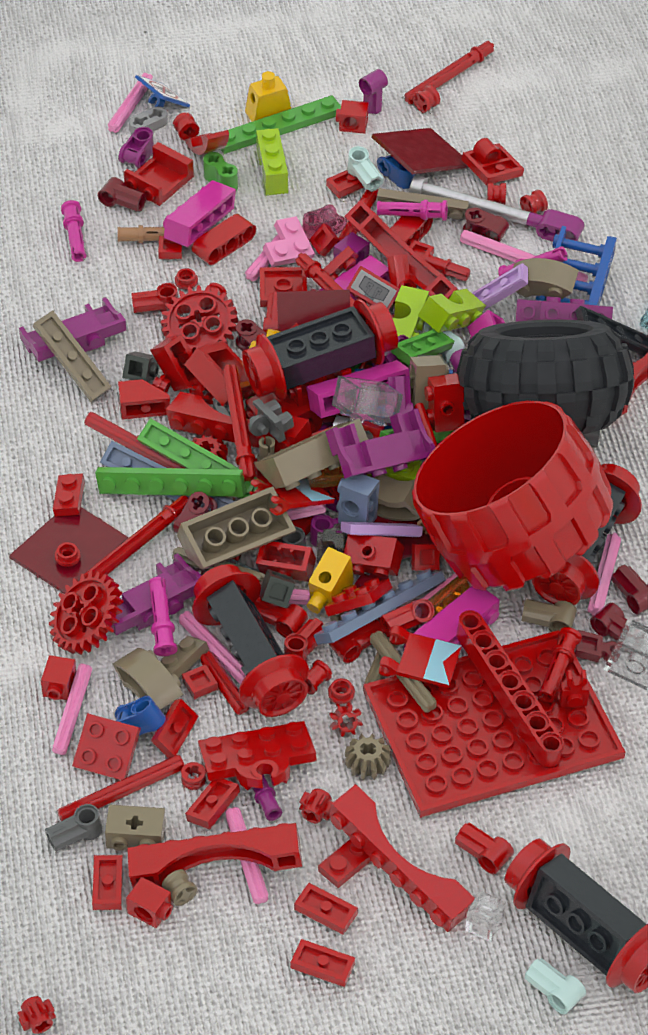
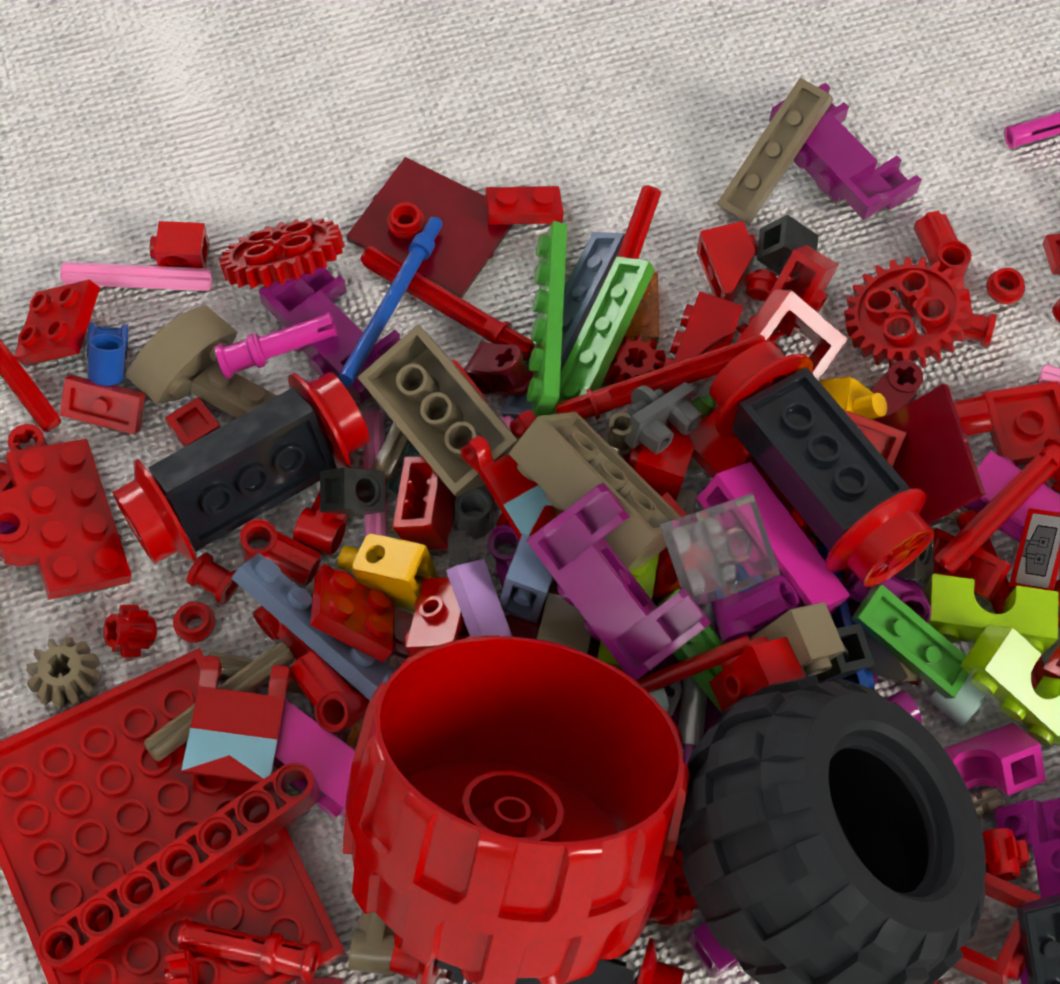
camera: 80 degrees right, 15 degrees up
(96, 546) = (419, 251): none -> blue bar

